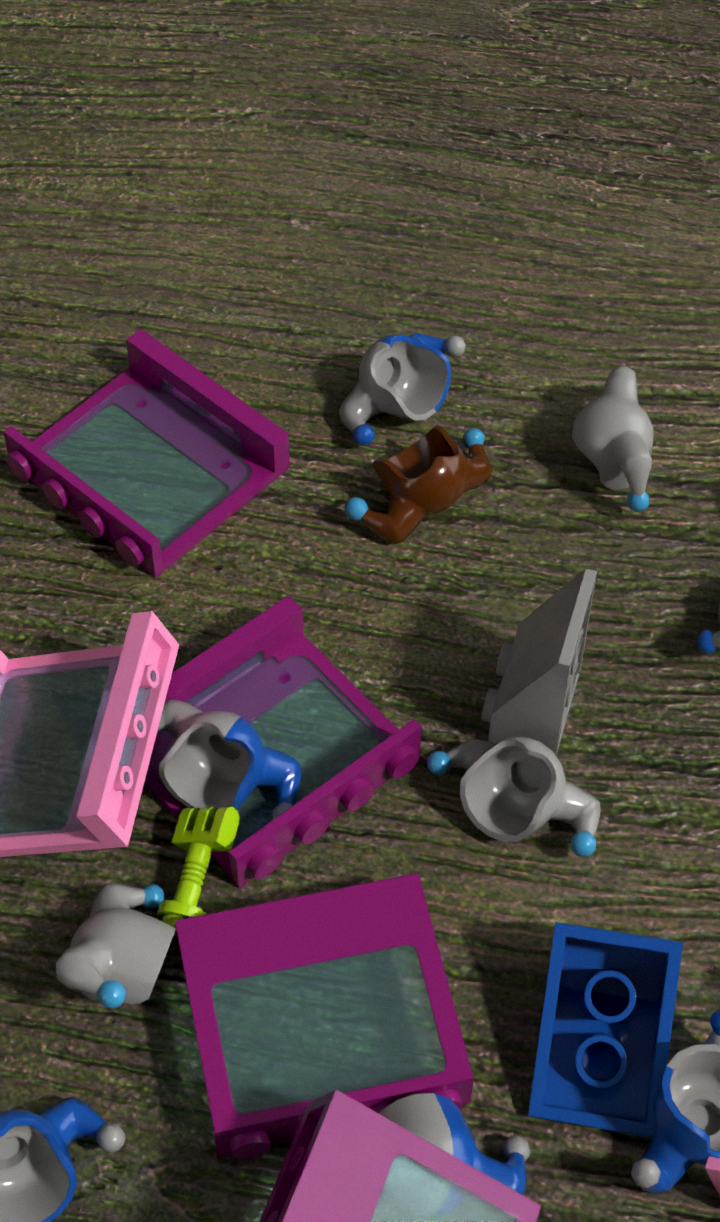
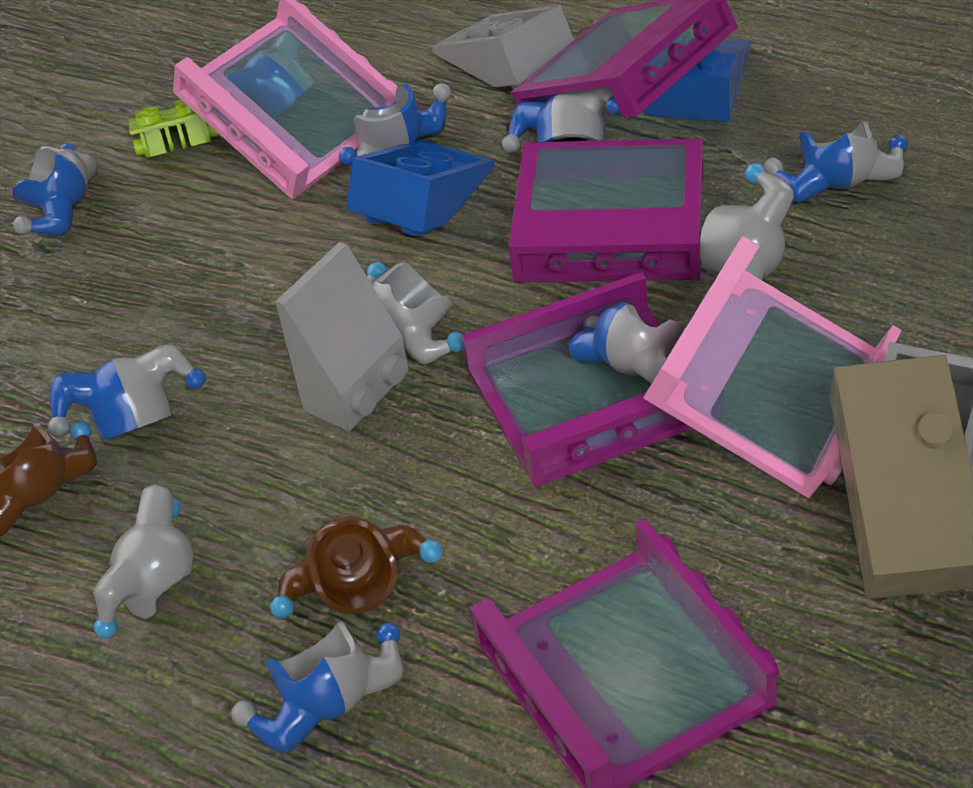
camera: 155 degrees left, 10 degrees down
(198, 834) = (691, 280): lime hinge -> none

